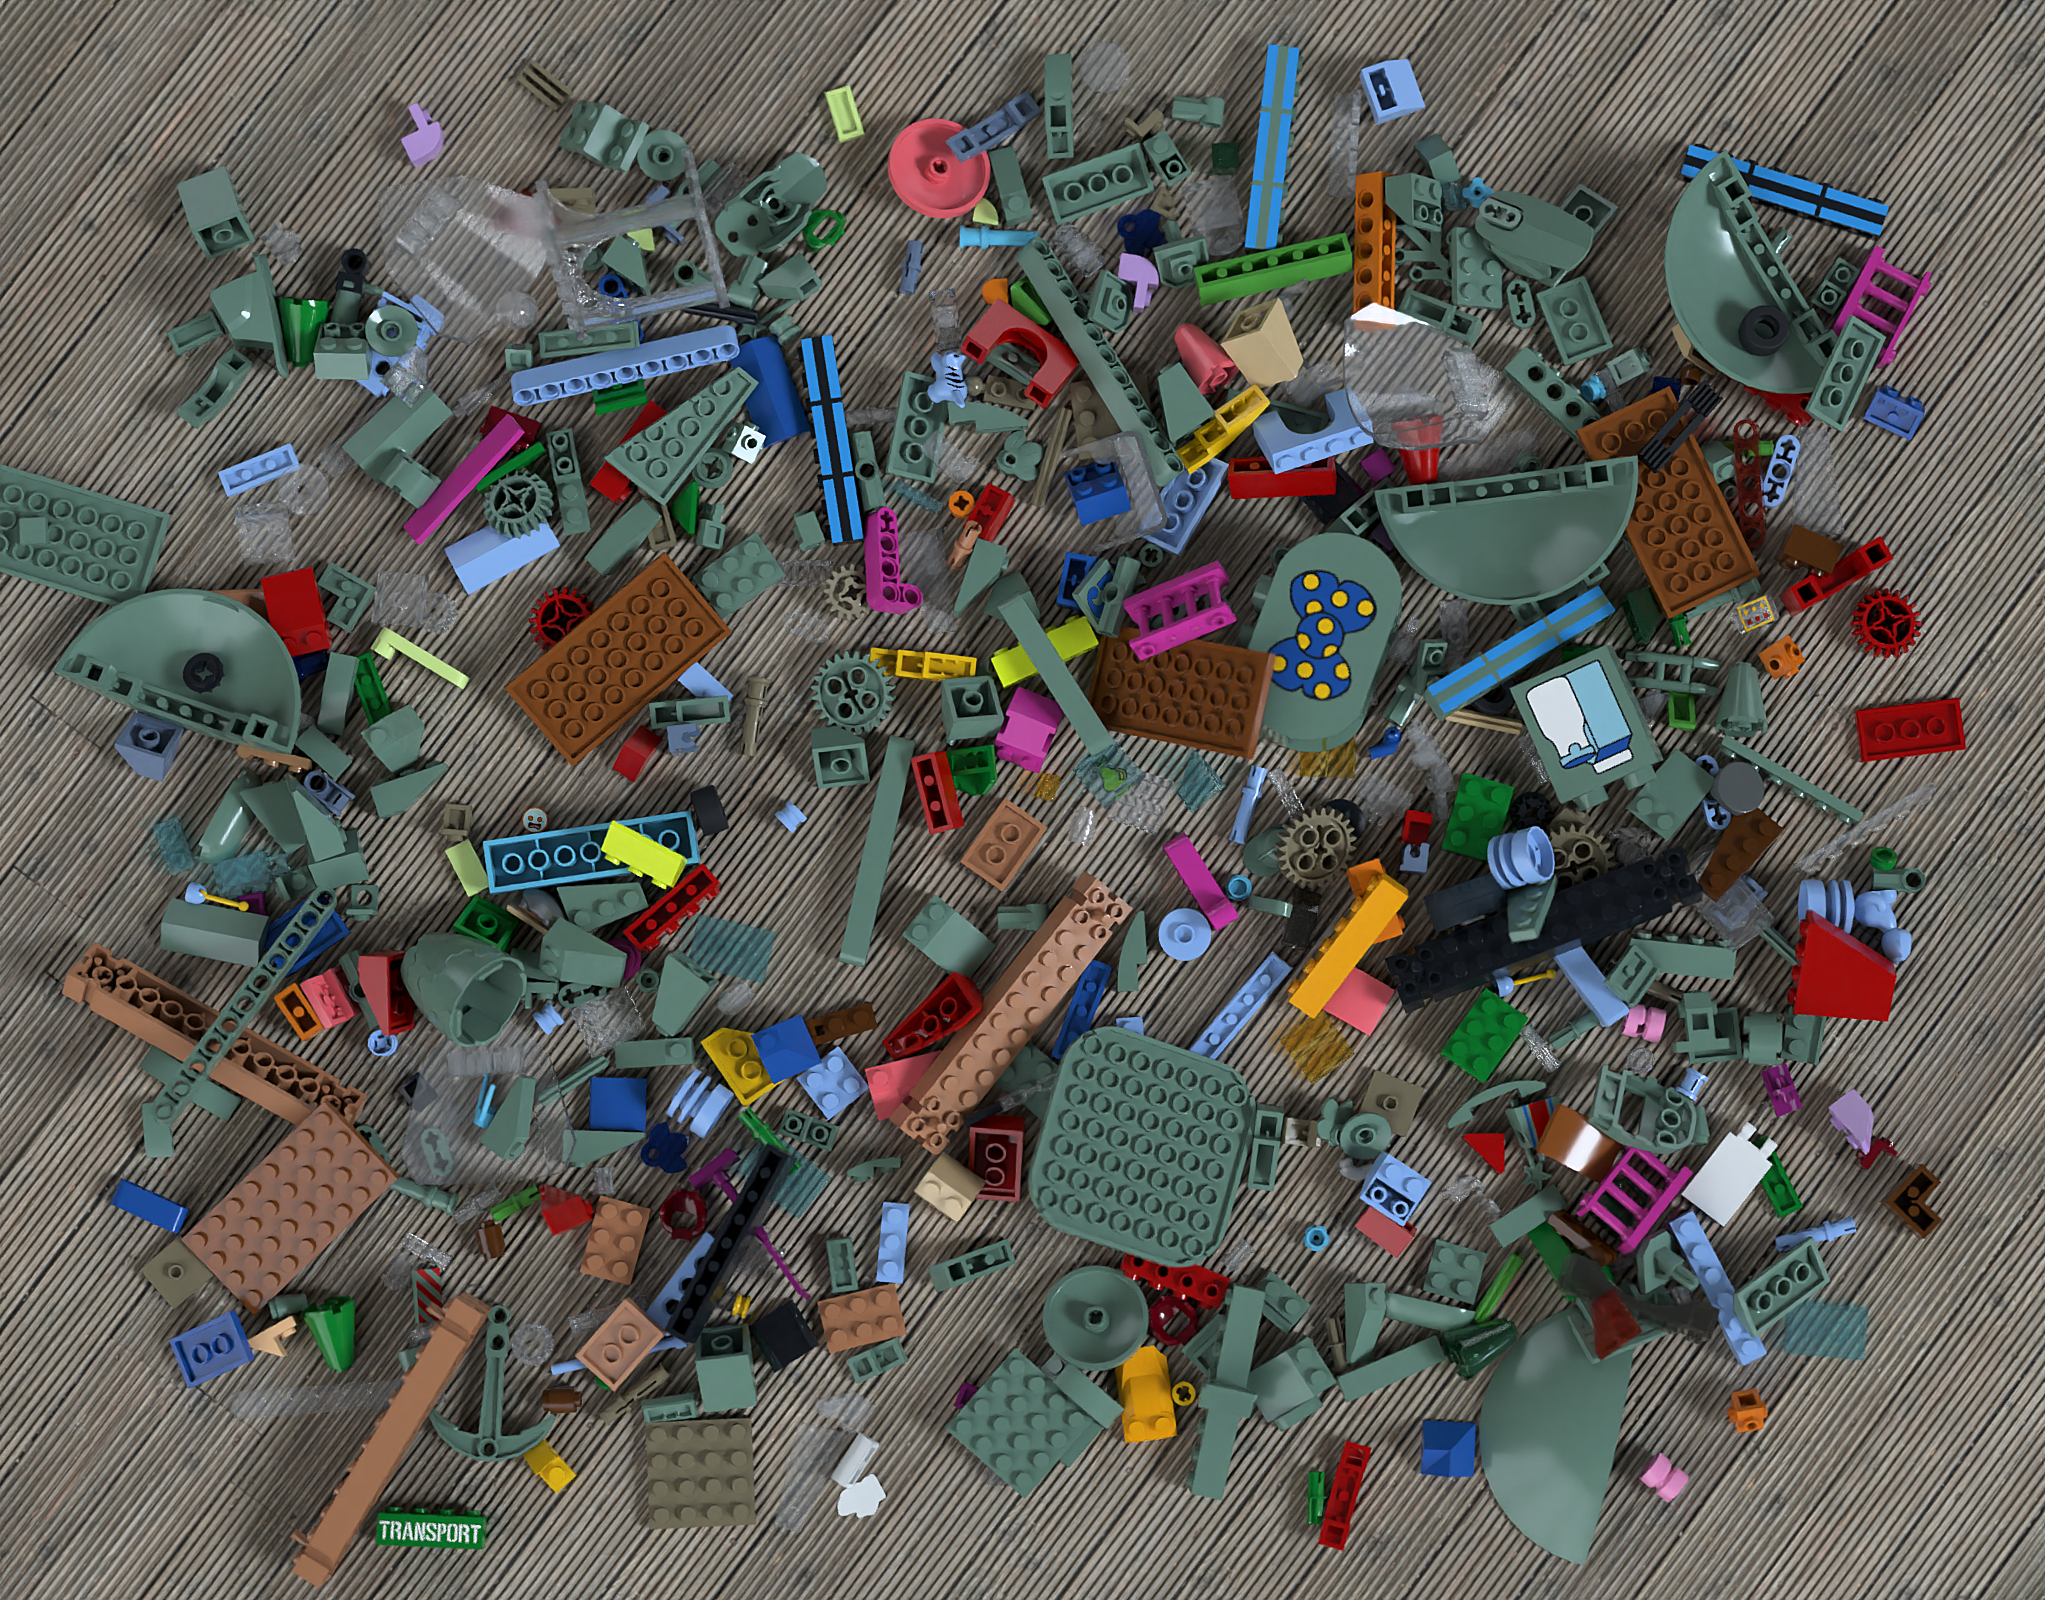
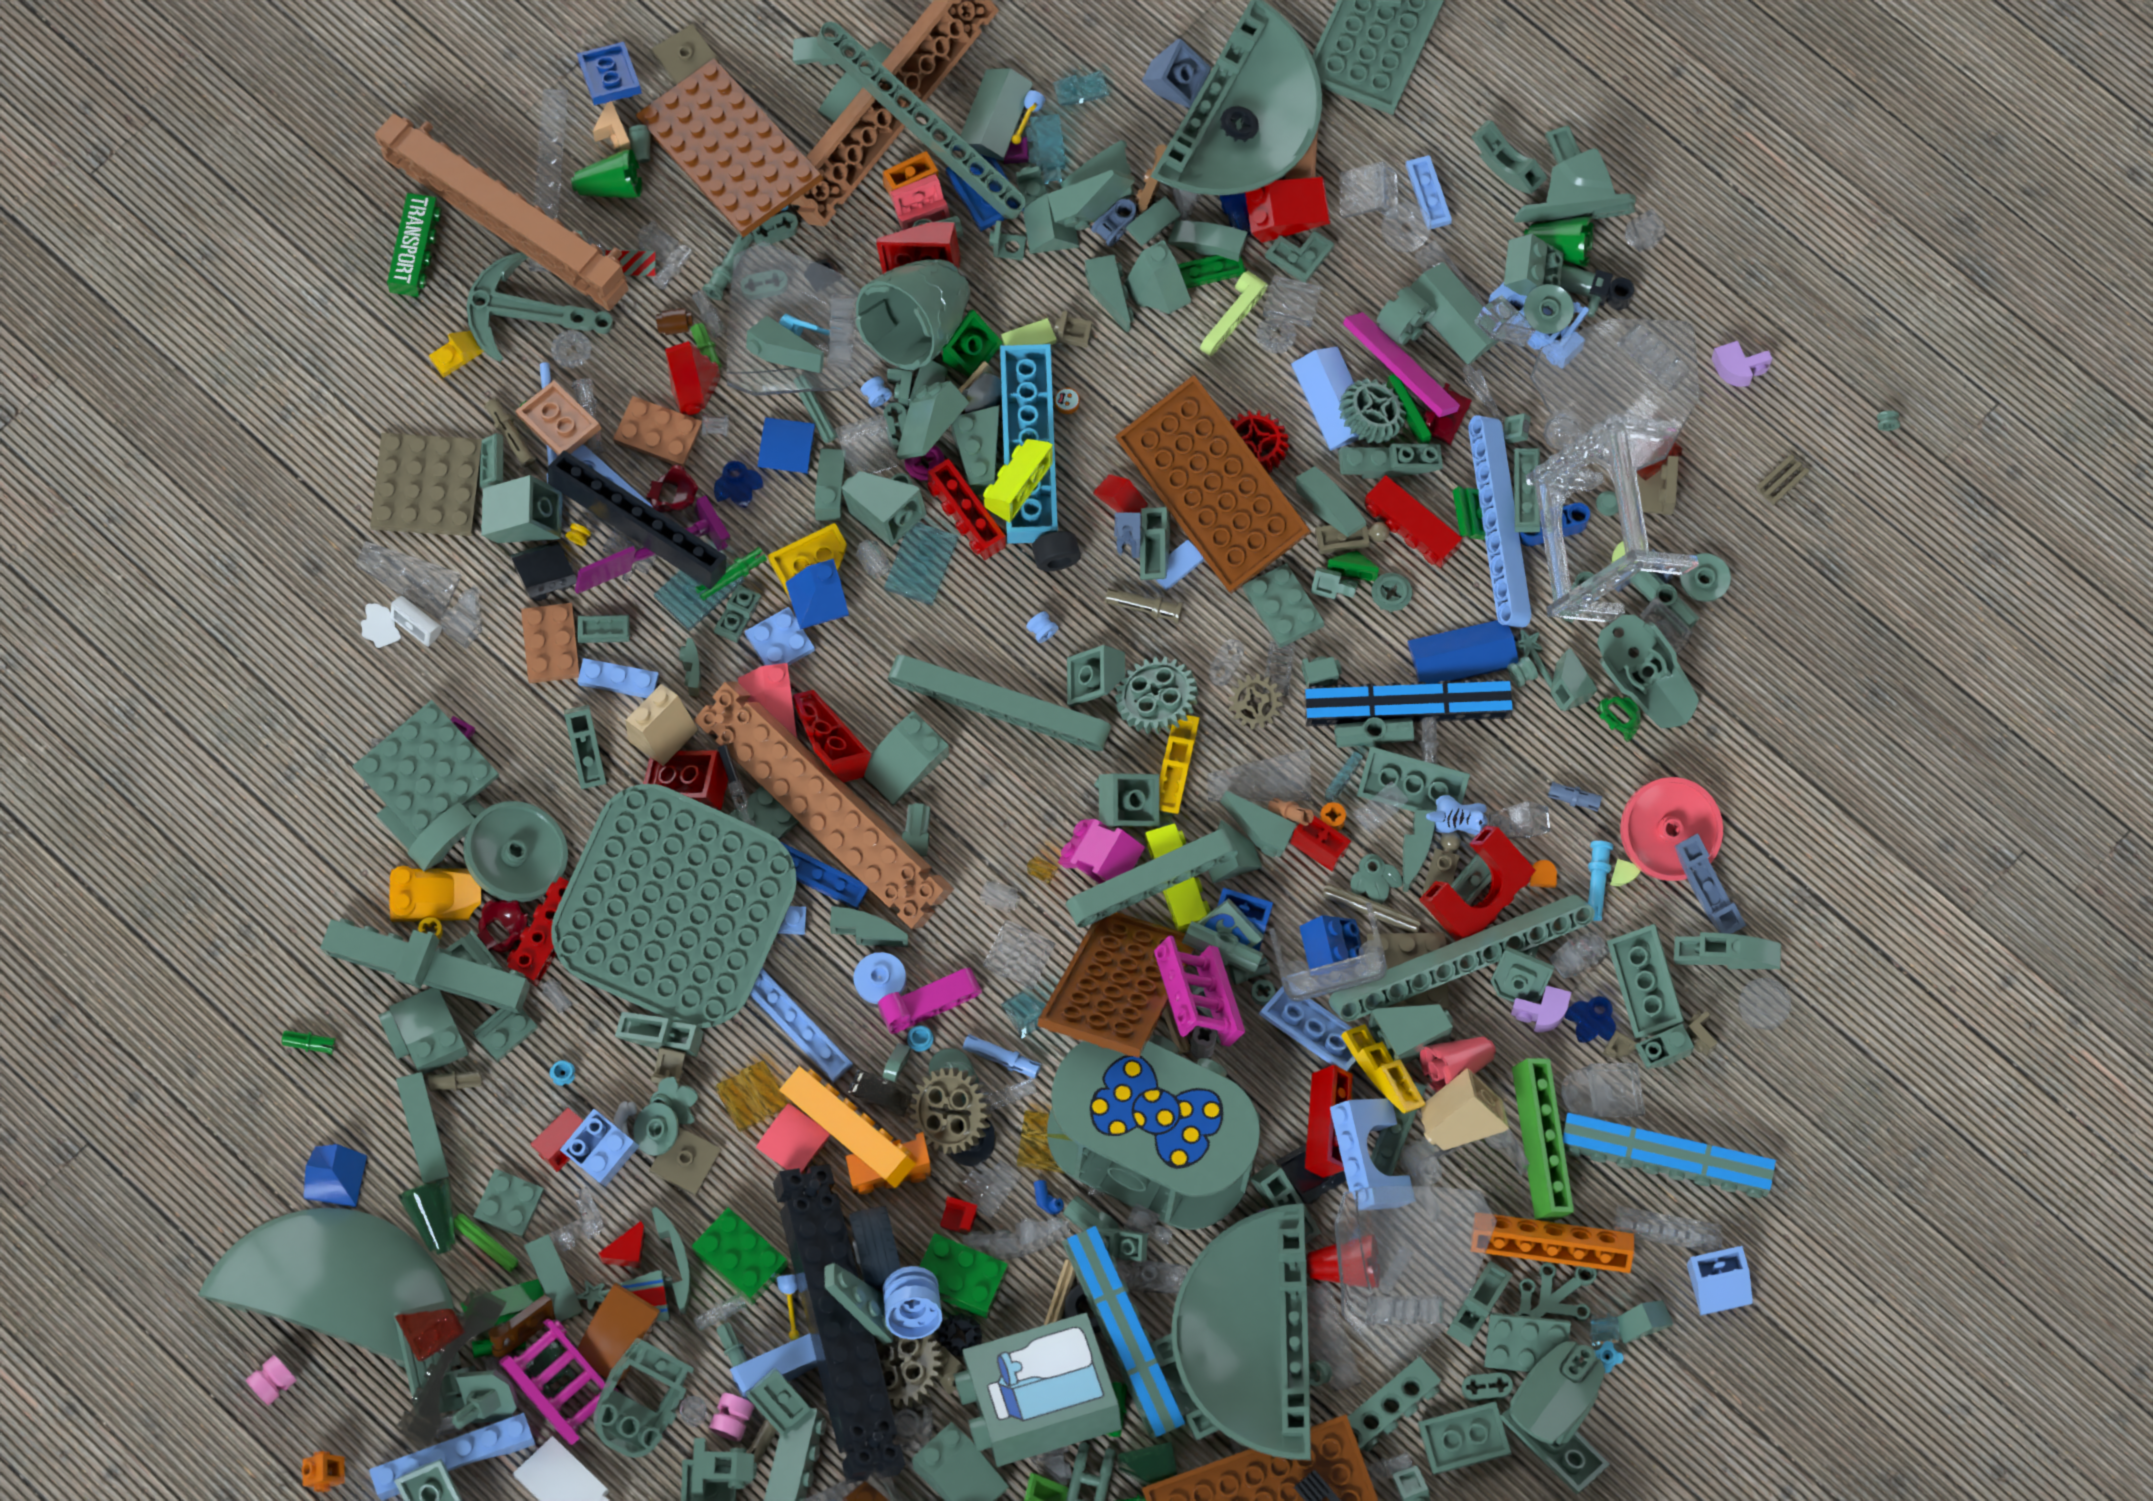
camera: 90 degrees right, 15 degrees down
(149, 1206) = (749, 37): blue beam -> none
(215, 212) = (1679, 175): sand green slope -> none
(228, 822) = (1096, 134): sand green brick -> none
(380, 1046) = (868, 243): light blue wheel -> none
(562, 1399) = (515, 368): reddish brown brick -> none
(599, 1144) = (750, 418): sand green slope -> none
(603, 135) = (1728, 522): sand green bracket -> none
(627, 262) = (1596, 532): sand green slope -> none
(672, 445) = (1414, 550): sand green wing -> none
(699, 1103) = (775, 513): light blue wheel -> none
(729, 313) = (1543, 621): black axle -> none
(744, 441) = (1414, 620): sand green brick -> none
(746, 289) = (1565, 636): sand green piece -> none
(842, 1023) = (835, 654): reddish brown plate -> none
(844, 114) = (1735, 751): yellowish green tile -> none
(877, 1360) = (507, 652): sand green slope -> none
(882, 566) = (1282, 738): dark pink beam -> none
(937, 792) = (1049, 761): red brick -> none
(973, 769) = (1068, 798): green slope -> none
(1003, 844) = (990, 820): nougat plate -> none
(1010, 186) = (1648, 898): sand green slope -> none
(1028, 302) = (1529, 900): bright green slope -> none
(1109, 774) = (1048, 925): clear light blue tile -> none
(1179, 257) = (1563, 1048): sand green piece -> none
(1205, 111) = (1712, 1093): sand green piece -> none
(1224, 158) = (1661, 1106): clear green brick -> none
(1343, 1495) = (304, 1068): red slope -> none
(1363, 1318) = (474, 1105): sand green slope -> none
(1377, 466) = (1326, 1223): magenta tile -> none
(1411, 865) = (924, 1209): sand blue hinge -> none
(1415, 200) = (1599, 1285): sand green slope -> none
(1426, 1312) = (474, 1165): sand green brick -> none
(1593, 389) = (1390, 1448): medium azure plate -> none
(1691, 1083) = (653, 1458): light blue bush -> none
(1701, 1131) = (615, 1461): sand green cone -> none

